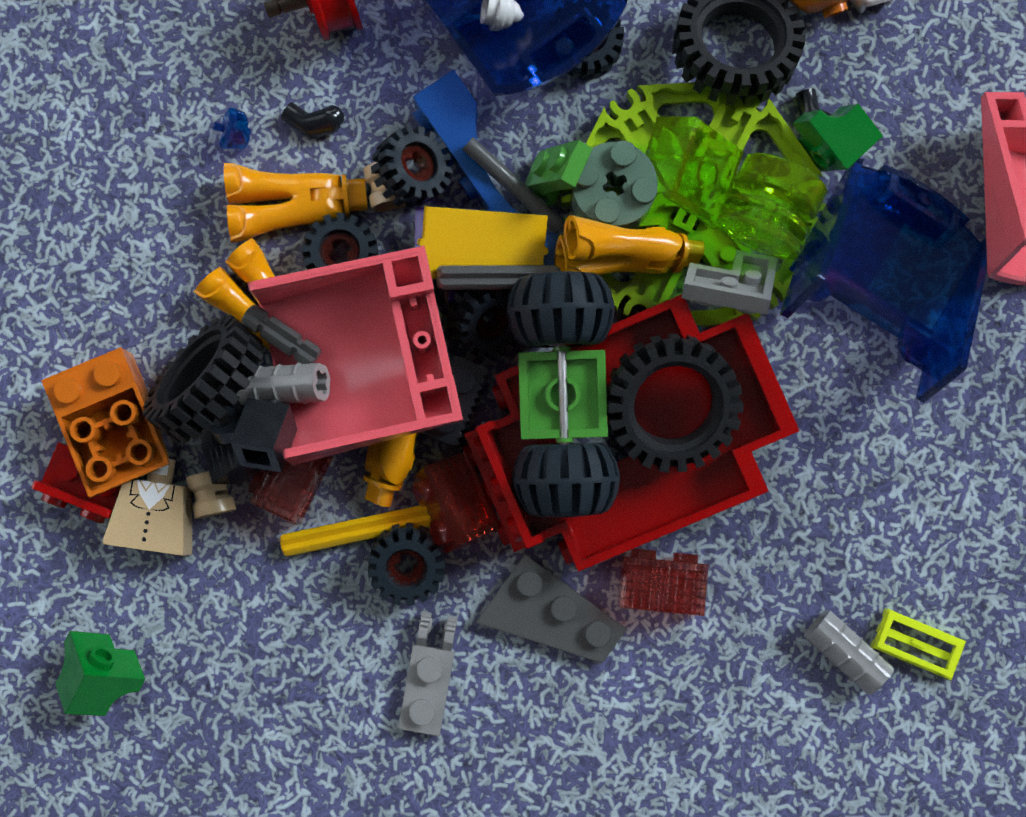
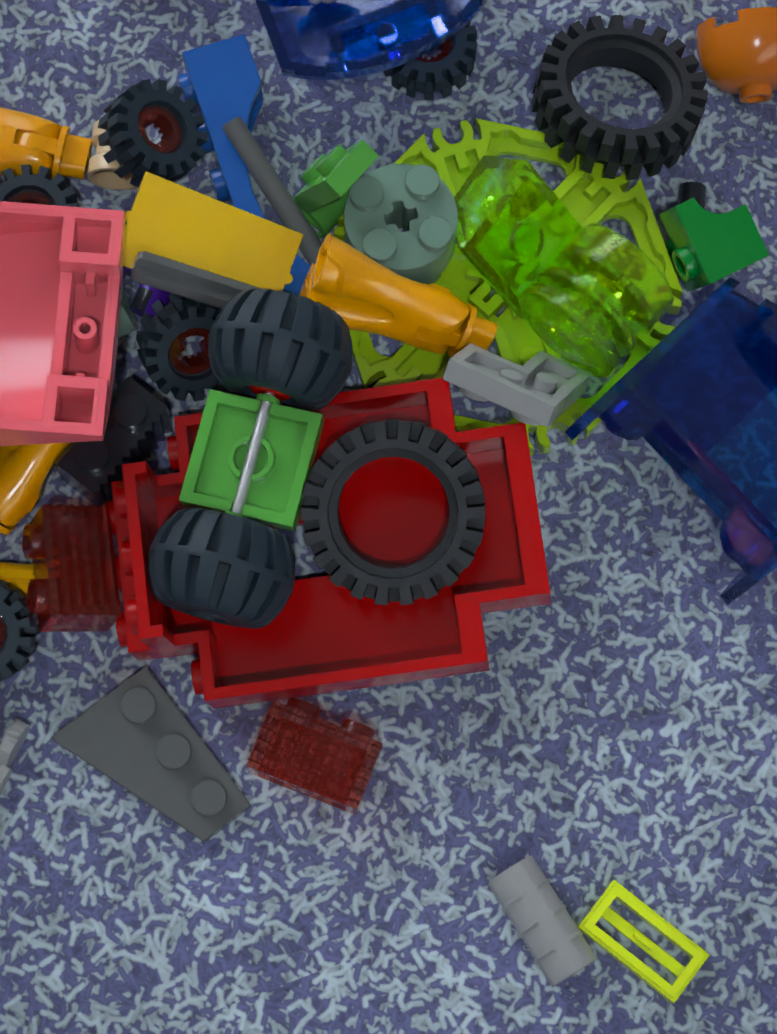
camera: 15 degrees right, 10 degrees down
(314, 124) = (52, 58): black arm -> none

